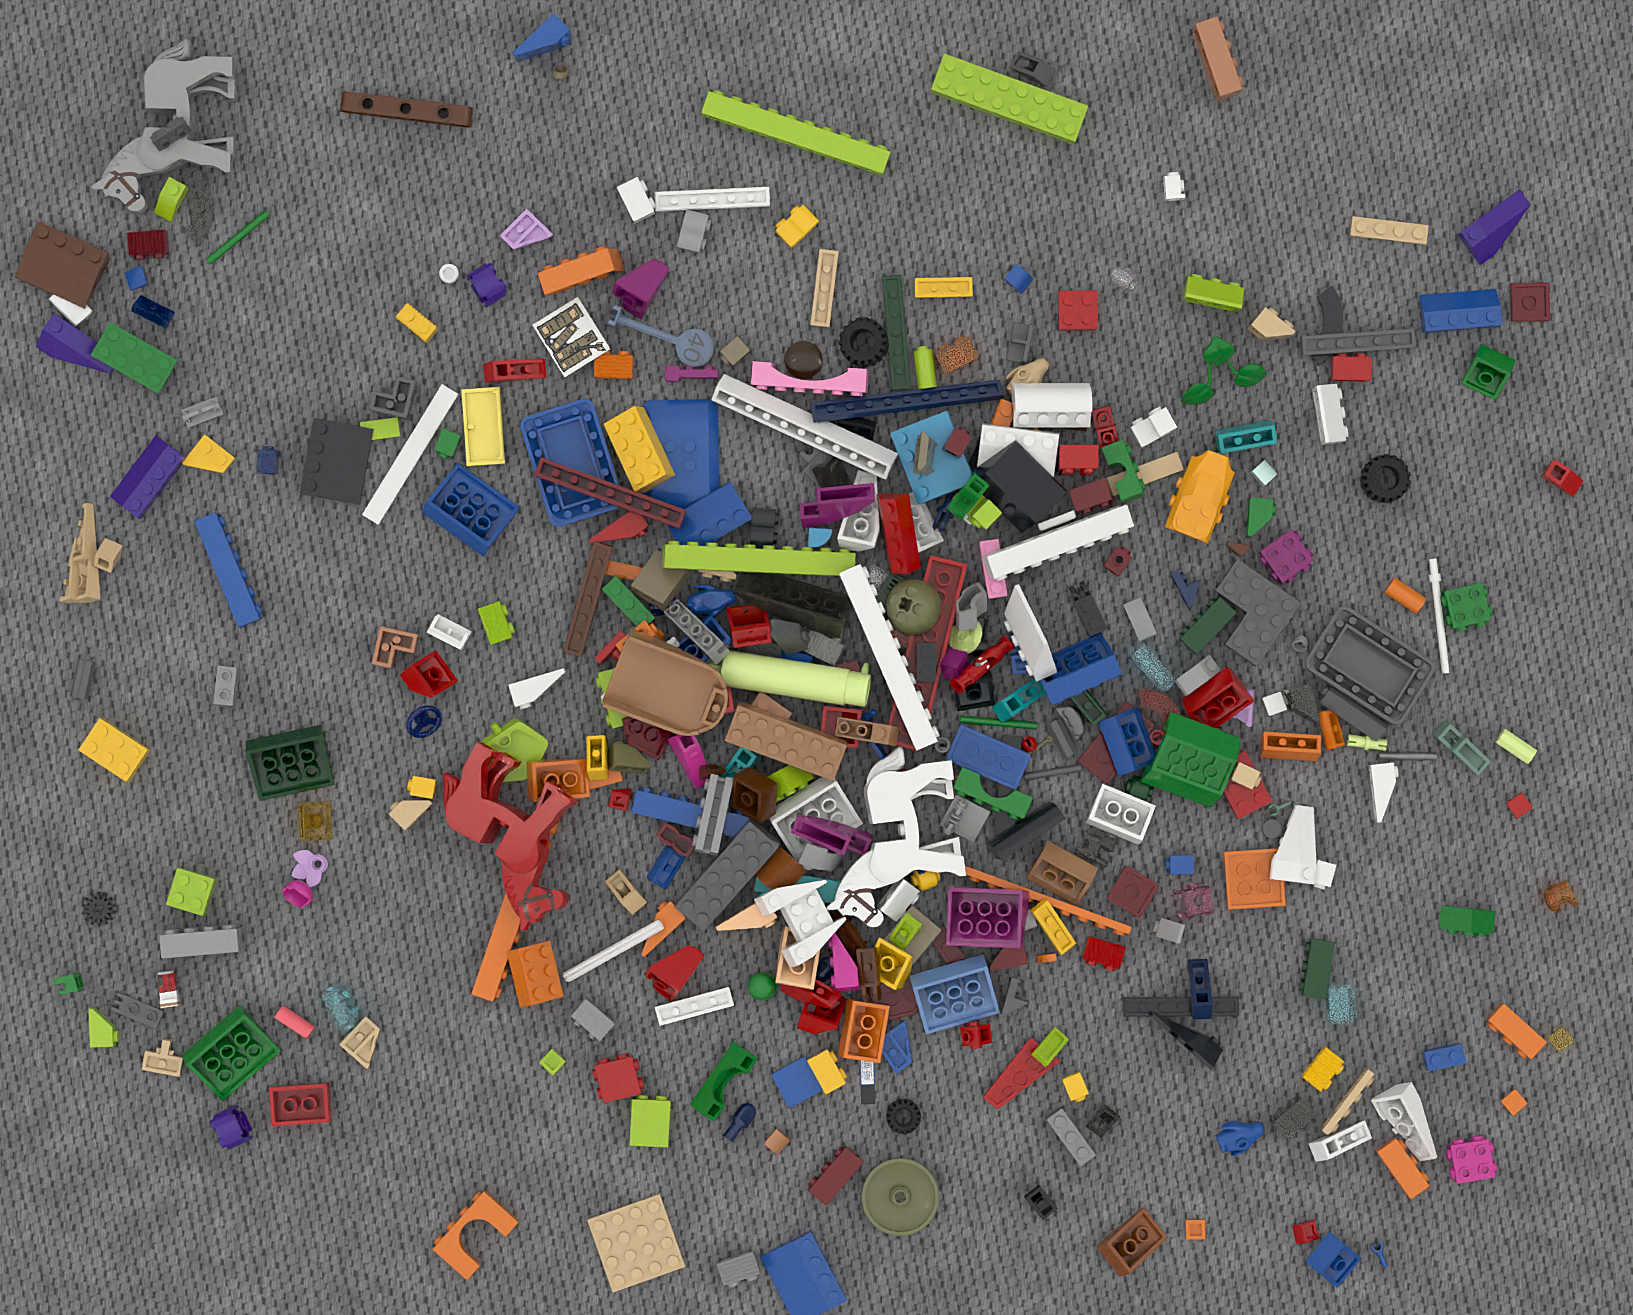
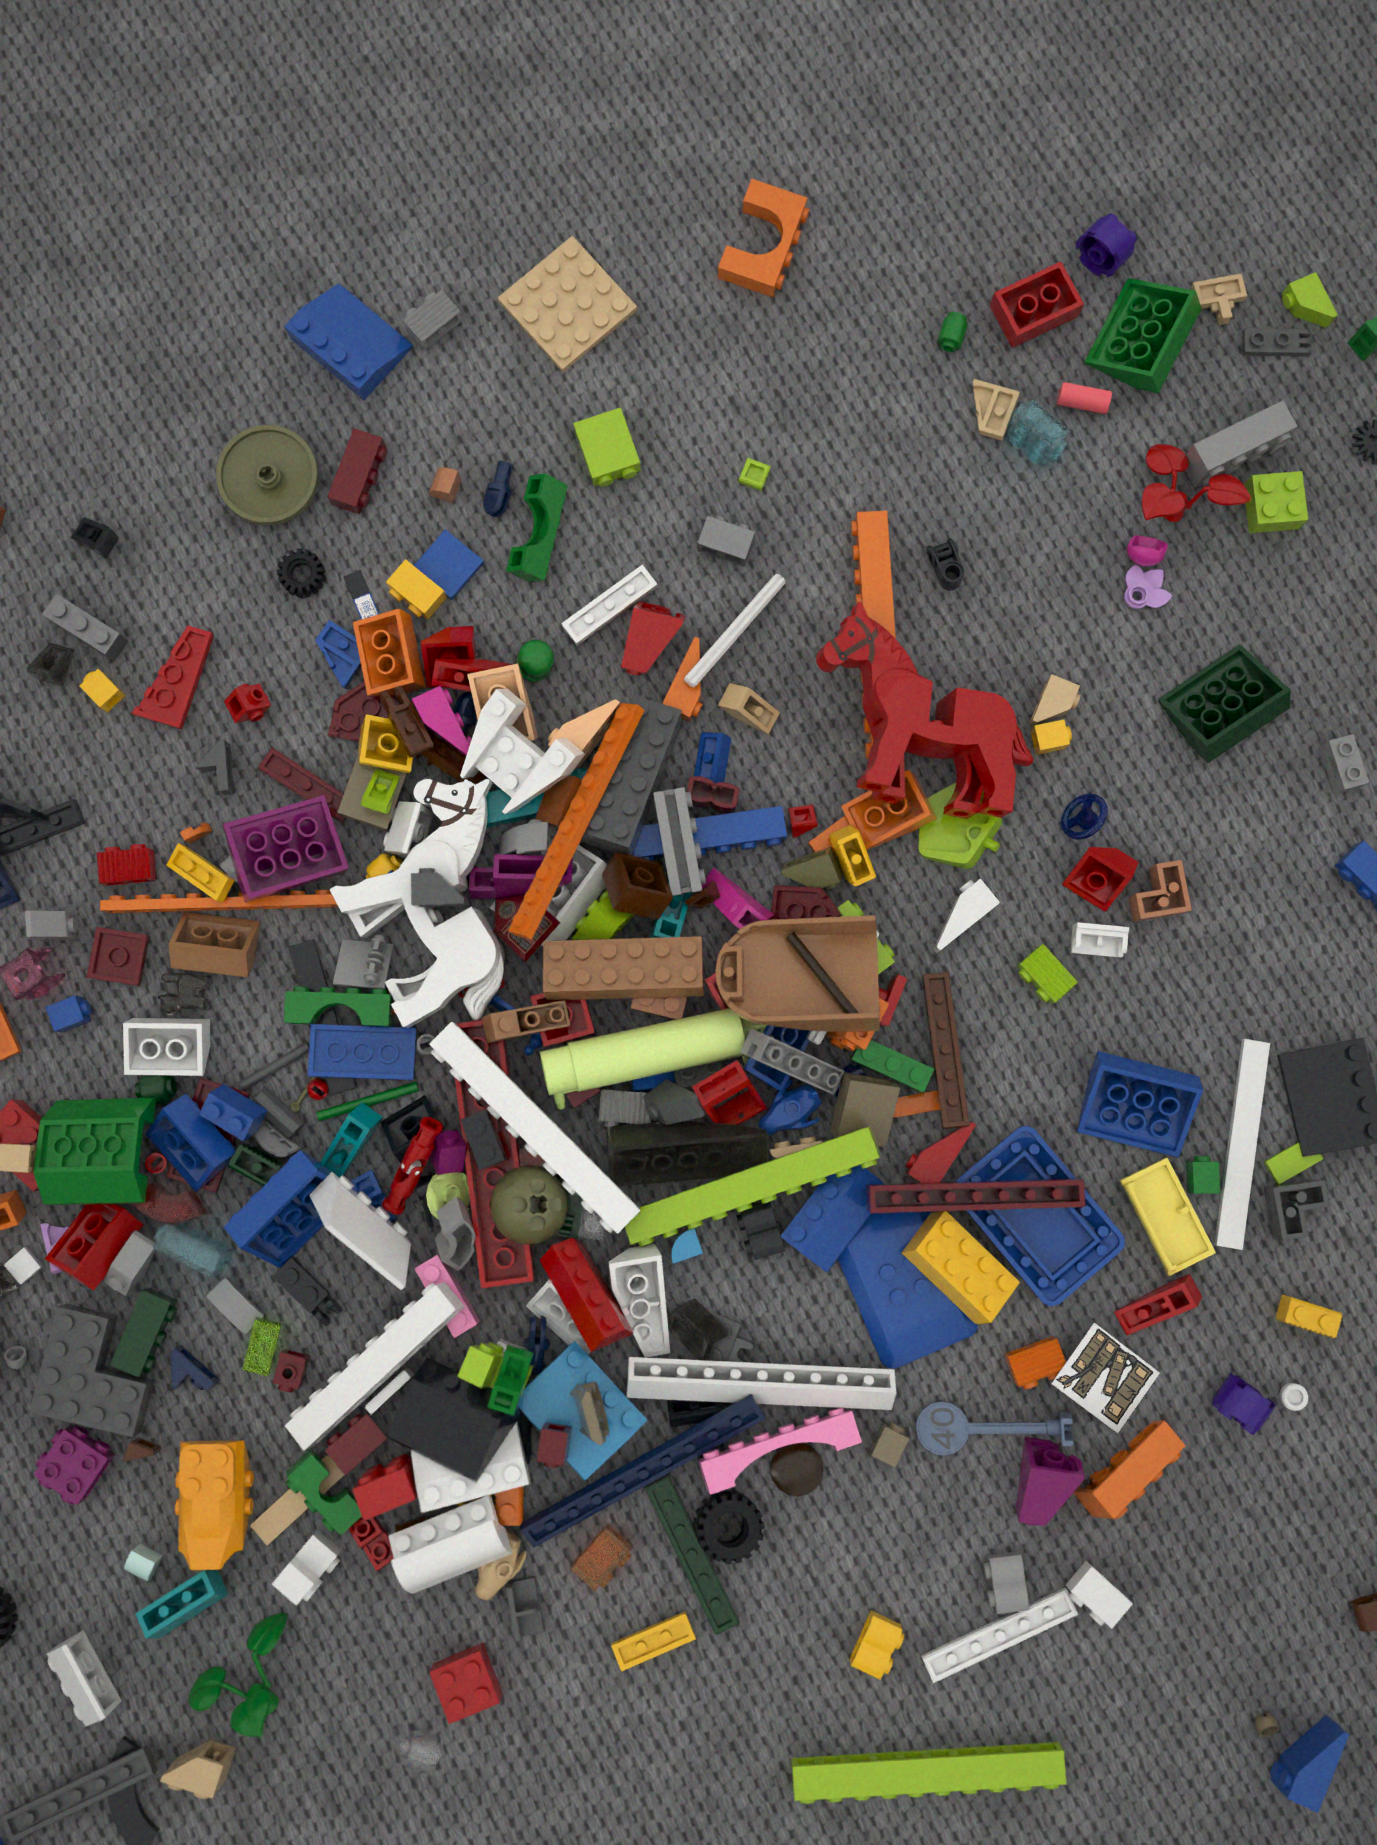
camera: 155 degrees right, 5 degrees down
(168, 989) = (1250, 377): leg -> none
(279, 916) = (1166, 503): none -> red plant
(315, 821) = (1165, 643): clear yellow slope -> none
(367, 1109) = (953, 332): none -> green brick
(443, 942) = (945, 559): none -> black piece
(525, 231) = (1221, 1492): lavender wing -> none
(535, 973) = (819, 564): orange brick -> none
(618, 1078) = (667, 482): red brick -> none
(653, 681) = (821, 974): none -> dark brown bar
(674, 373) = (953, 1383): magenta plate -> none
(777, 855) = (576, 821): none -> orange plate
(824, 288) = (807, 1576): tan plate -> none
(836, 503) = (679, 1299): magenta slope -> none
(843, 801) = (504, 913): none -> dark red tile
(892, 843) = (434, 890): none -> dark grey slope
(924, 368) = (636, 1524): lime brick -> none
(954, 994) = (292, 742): medium blue slope -> none
(1009, 958) = (246, 806): dark red slope -> none
(1018, 279) = (560, 1693): blue brick -> none
(1025, 831) = (279, 974): black brick -> none
(1050, 1046) = (150, 725): lime tile -> none
(1090, 750) = (233, 1112): none -> blue brick
(1131, 584) = (262, 1346): none -> clear neon green plate
(1213, 293) = (294, 1780): lime slope -> none
(1259, 513) = (130, 1505): green slope -> none
(1351, 368) = (76, 1752): red brick -> none

